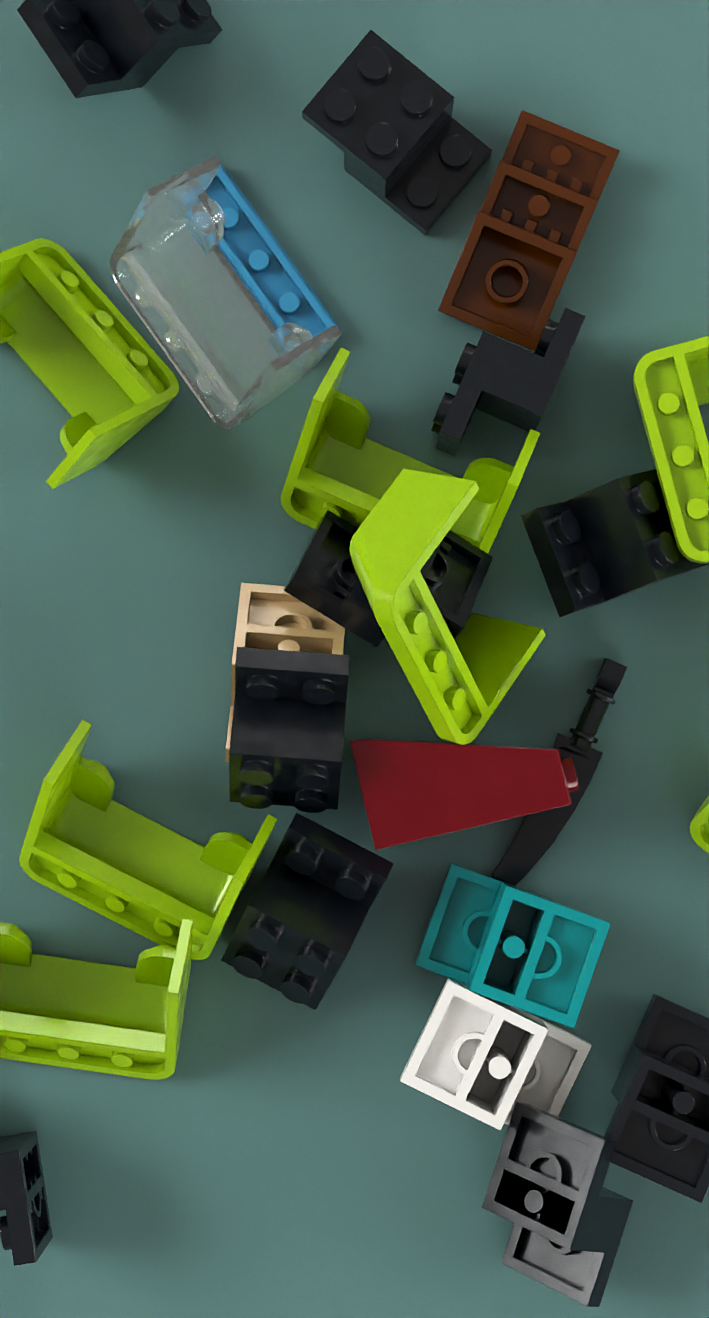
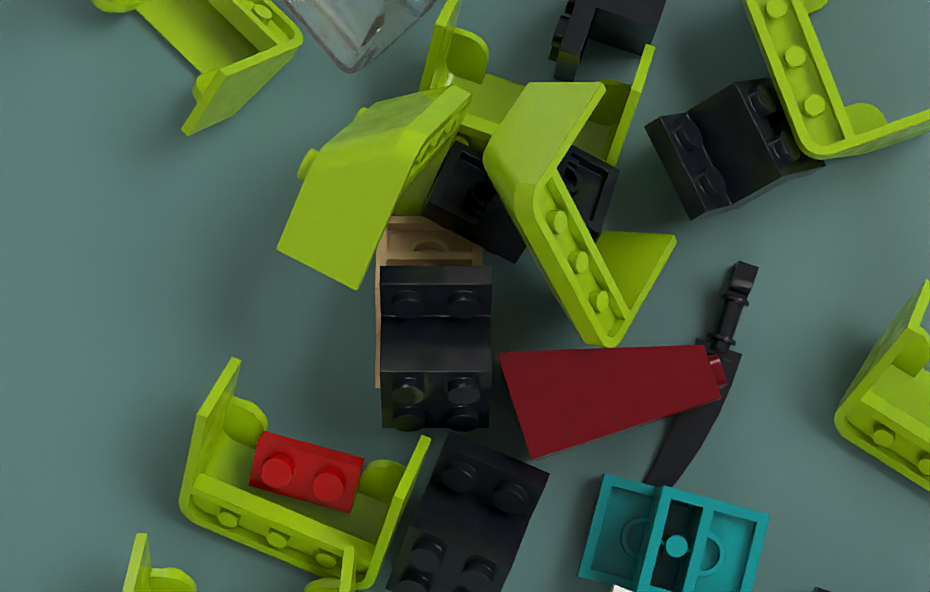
camera: 10 degrees left, 5 degrees down
(150, 838) = (306, 471): none -> red plate
(230, 550) = (365, 175): none -> lime windscreen

